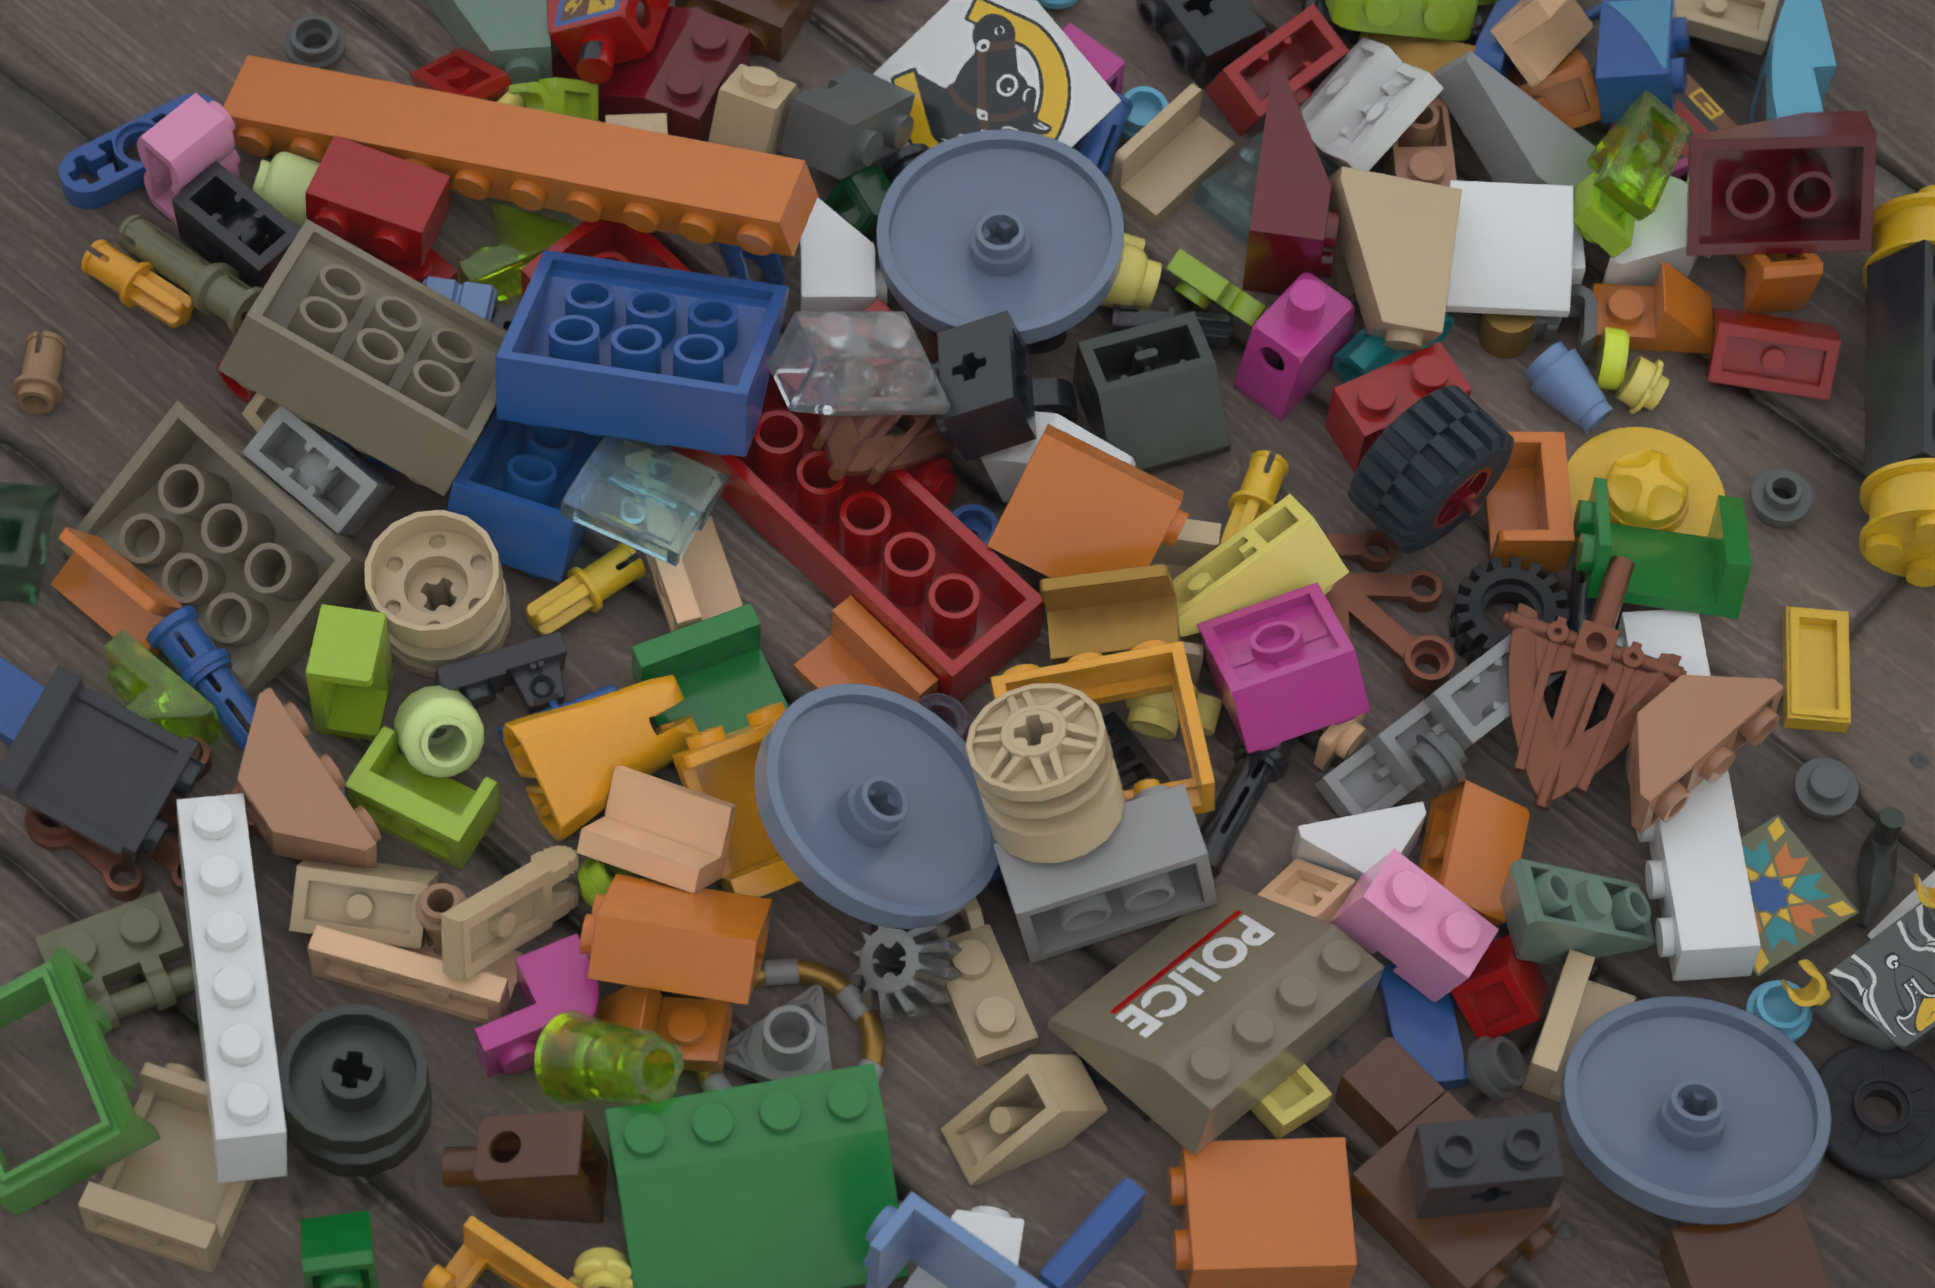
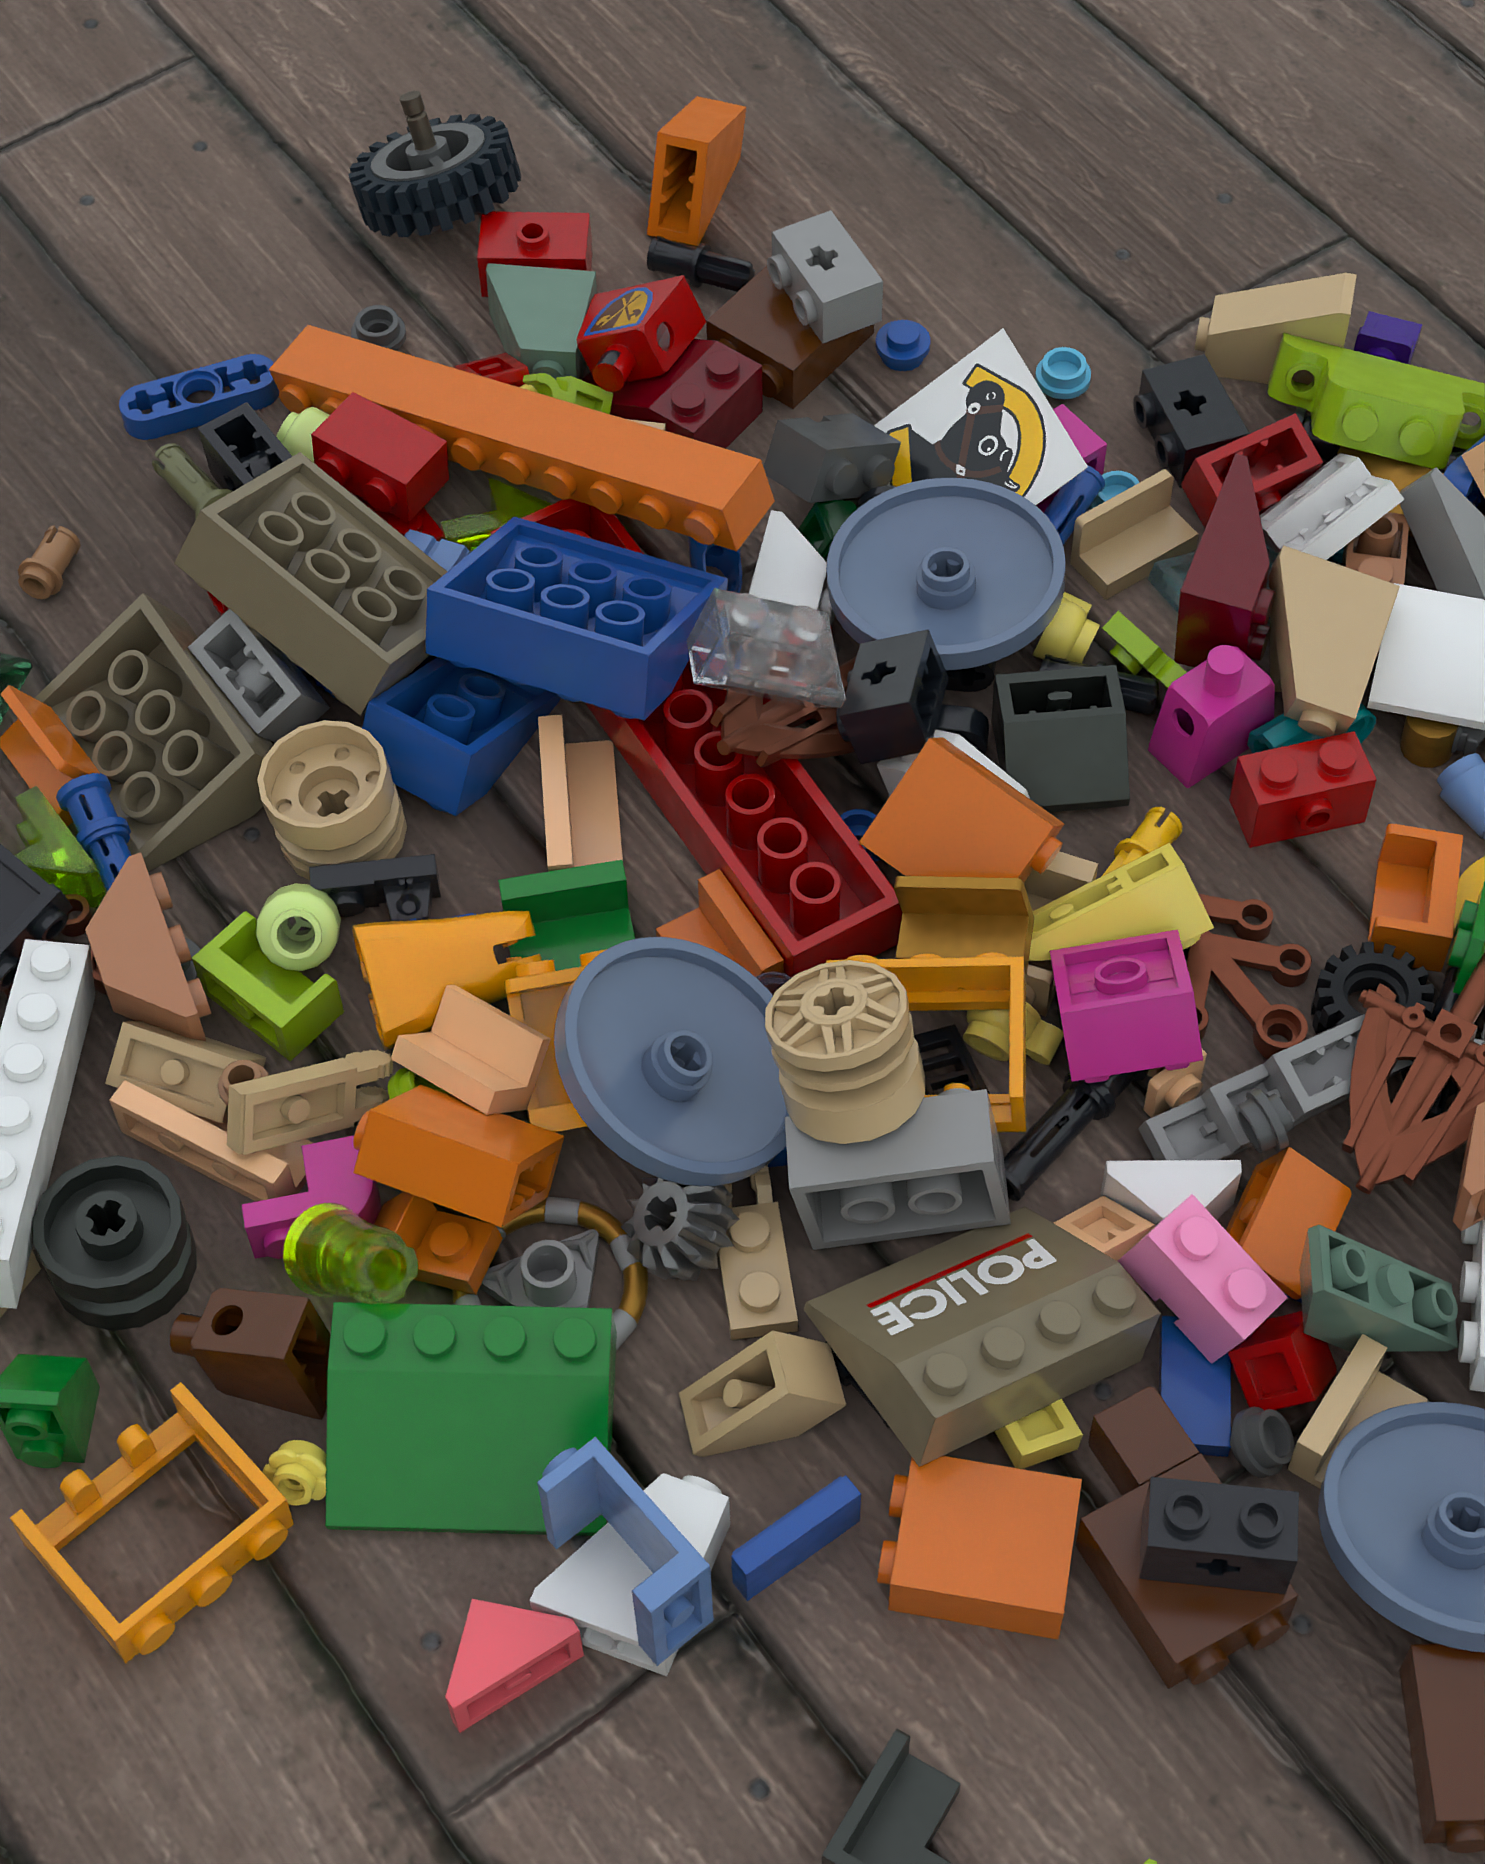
camera: 20 degrees right, 5 degrees down
(138, 284) = (155, 500): light orange axle -> none
(184, 147) = (224, 382): bright pink brick -> none
(349, 672) = (228, 856): lime panel -> none
(583, 590) = (477, 826): yellow axle -> none
(644, 496) = (544, 744): clear light blue slope -> none
(752, 110) = (743, 423): tan slope -> none
(936, 477) = (834, 779): red plate -> none
(1431, 468) = (1318, 844): black wheel -> none

